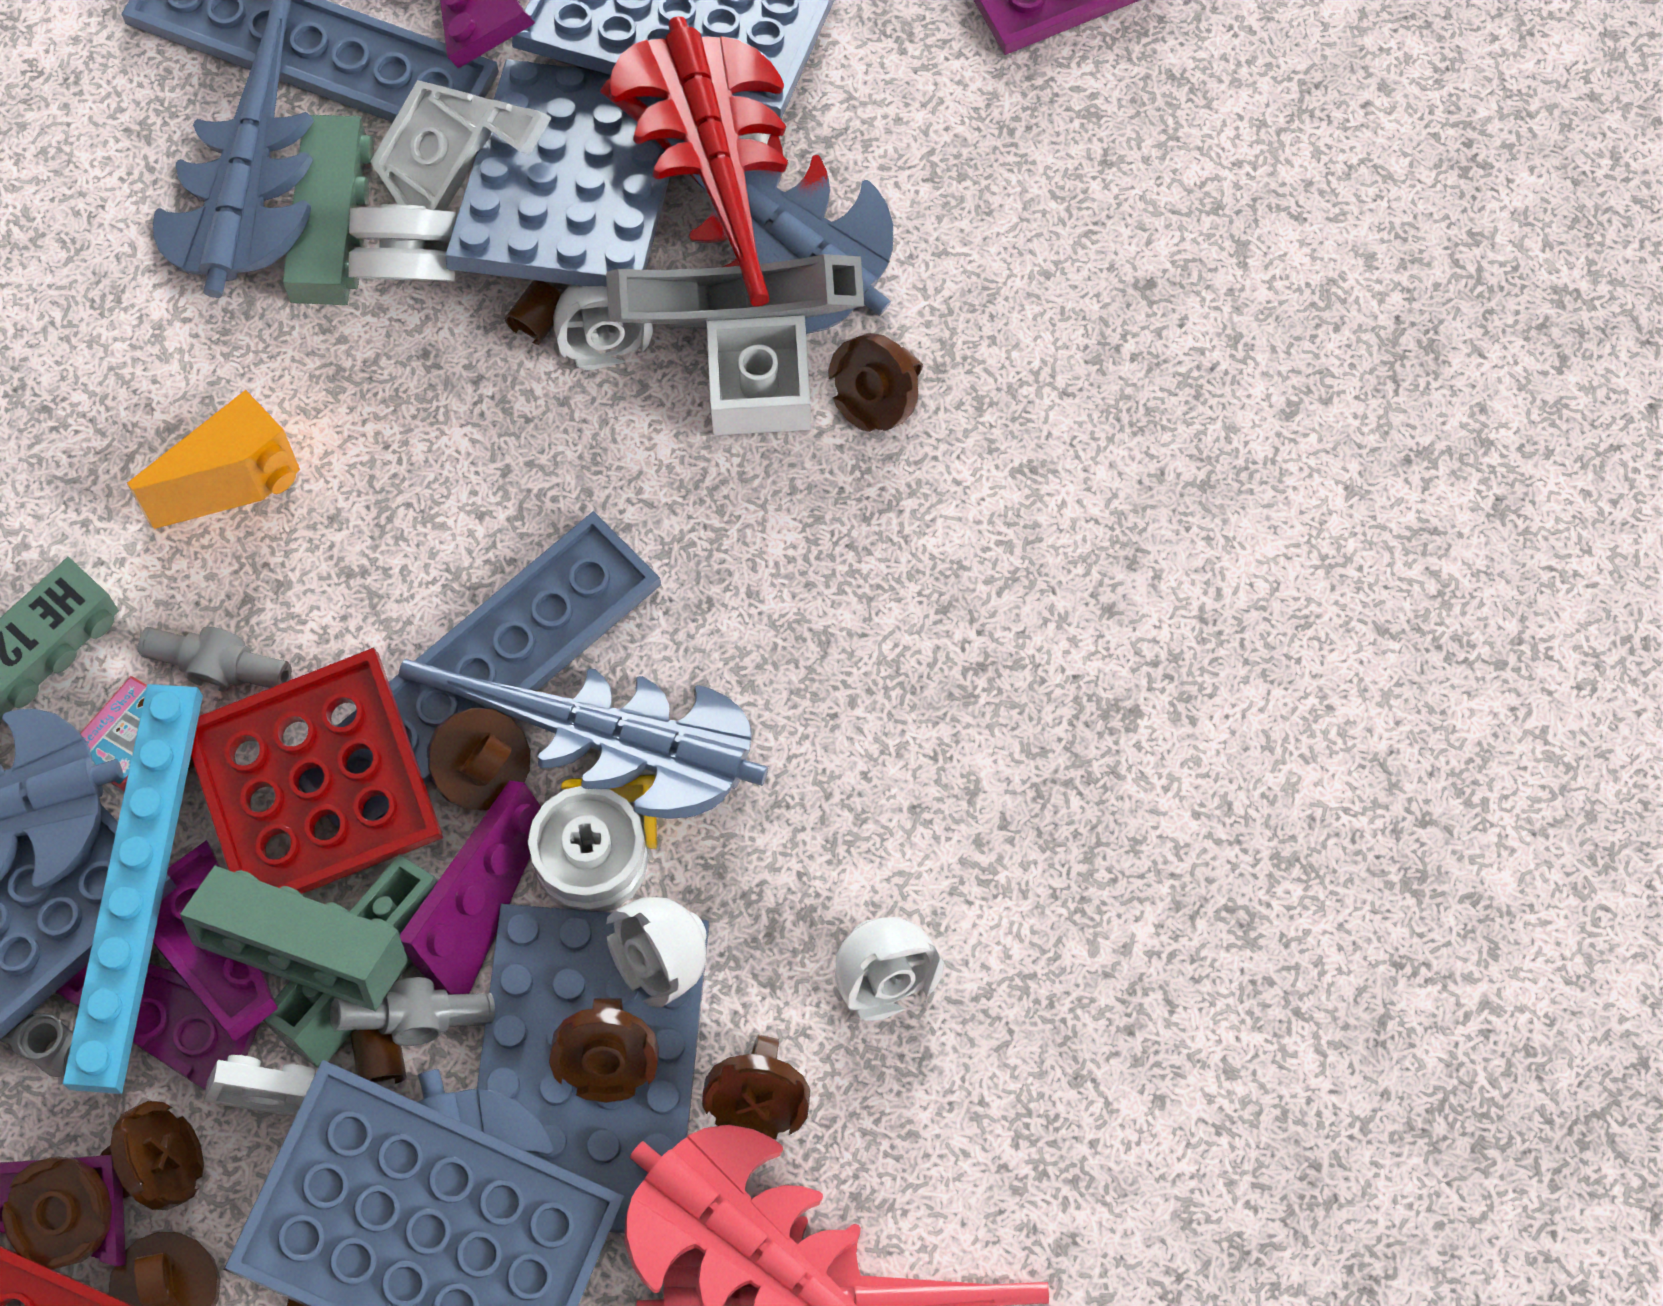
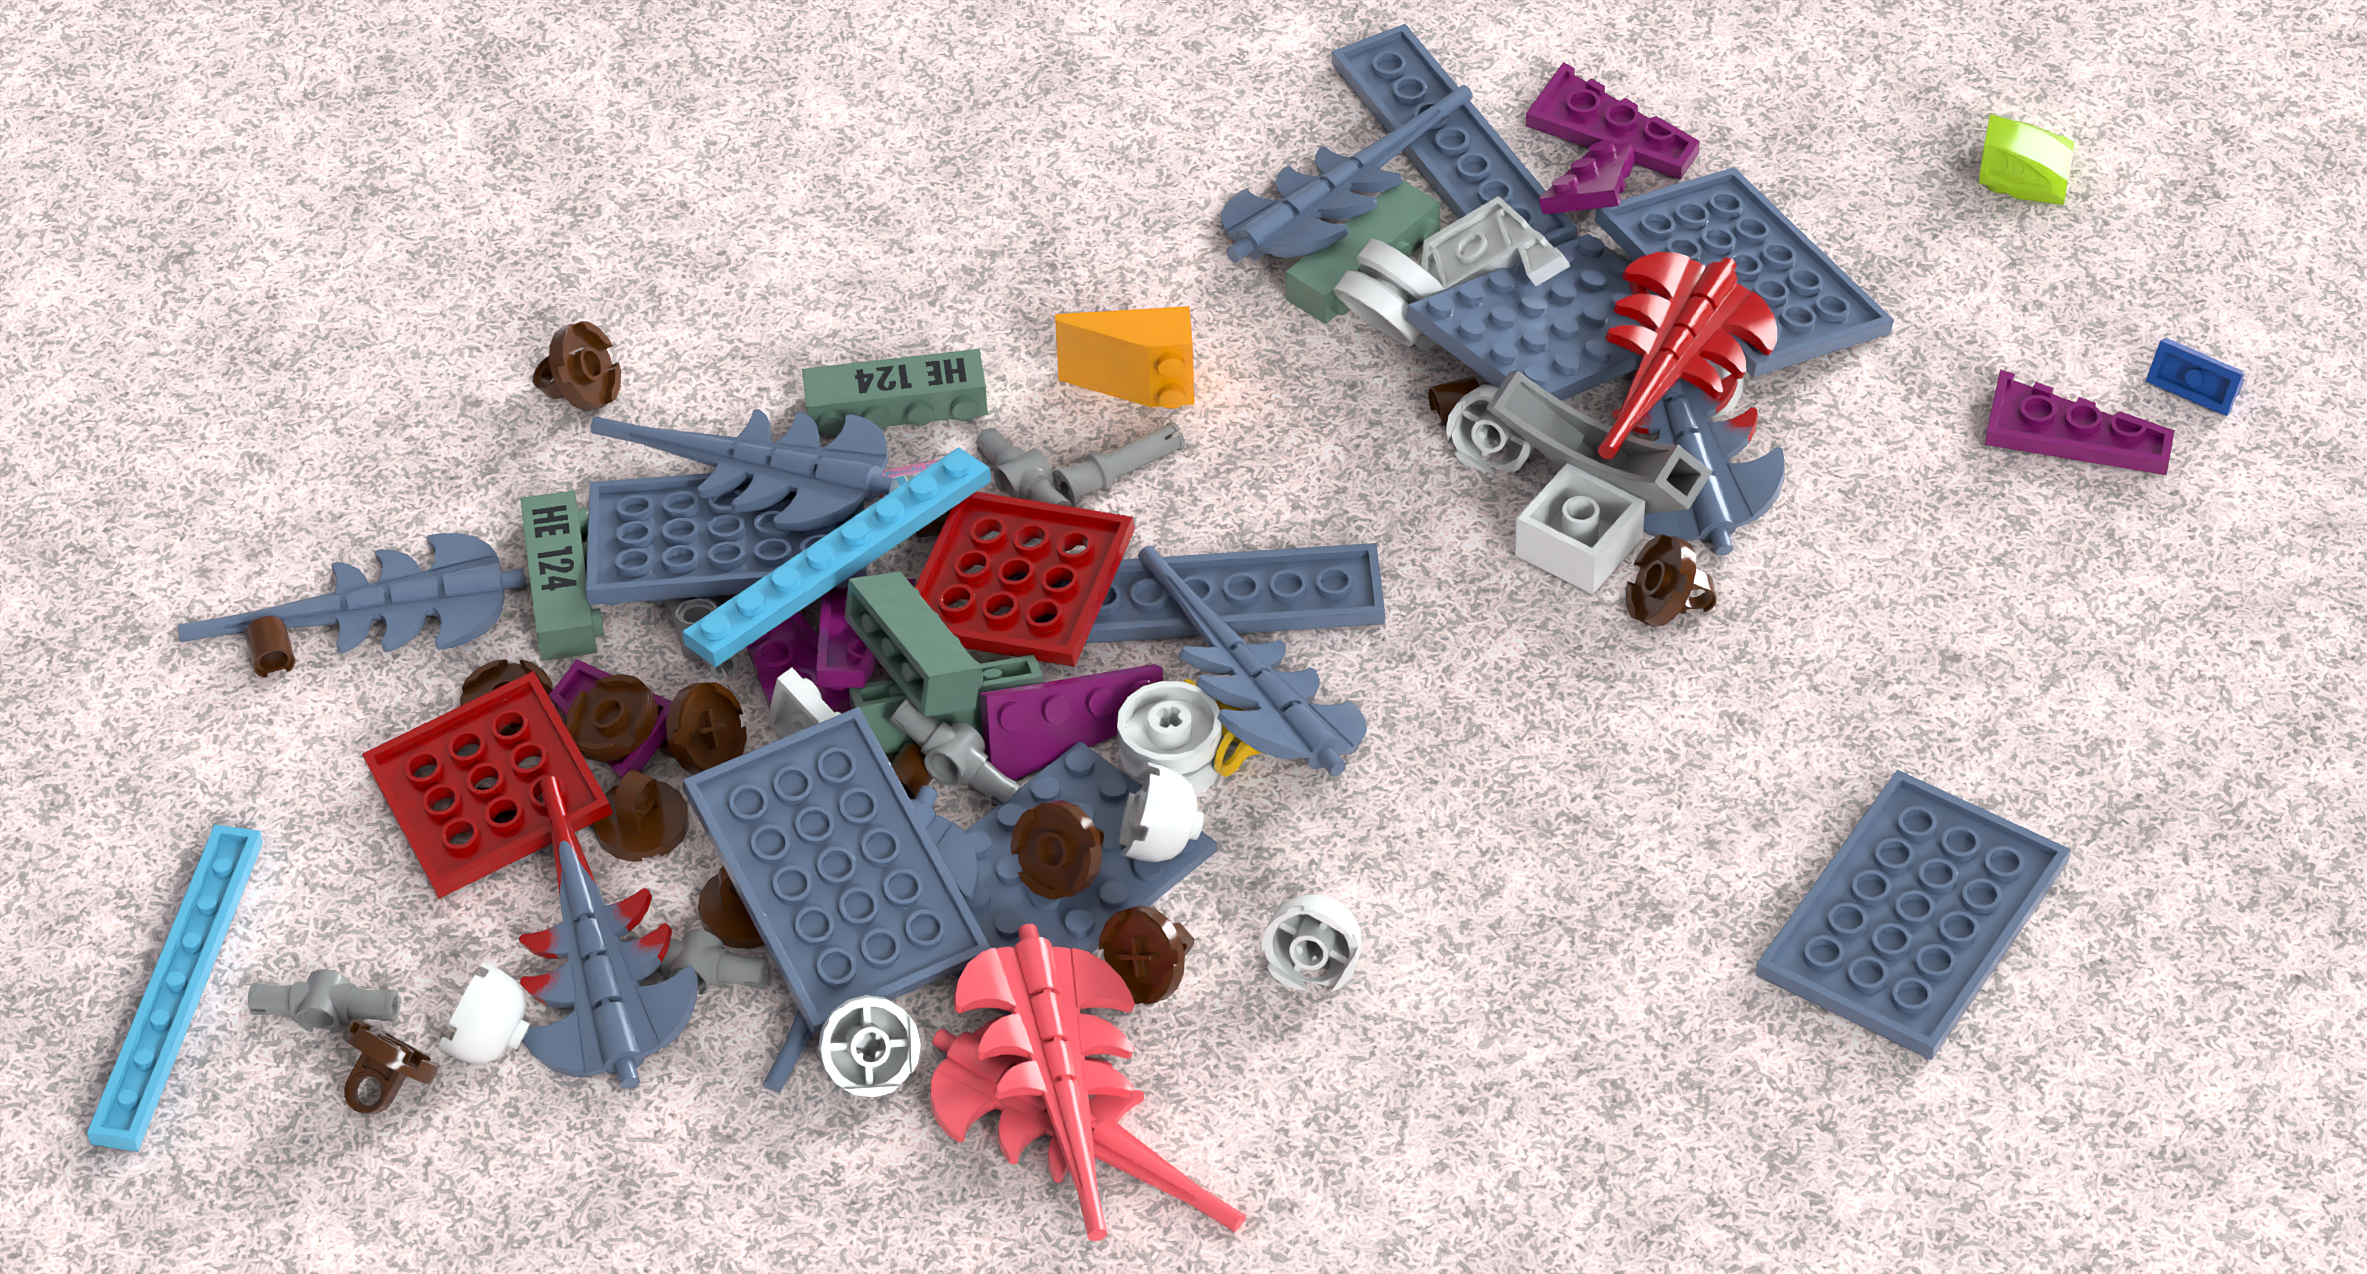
camera: 40 degrees right, 20 degrees down
(280, 602) = (1101, 469): none -> light grey pin
(476, 757) = (1146, 633): reddish brown tile -> none
(1330, 565) = (1913, 914): none -> sand blue plate

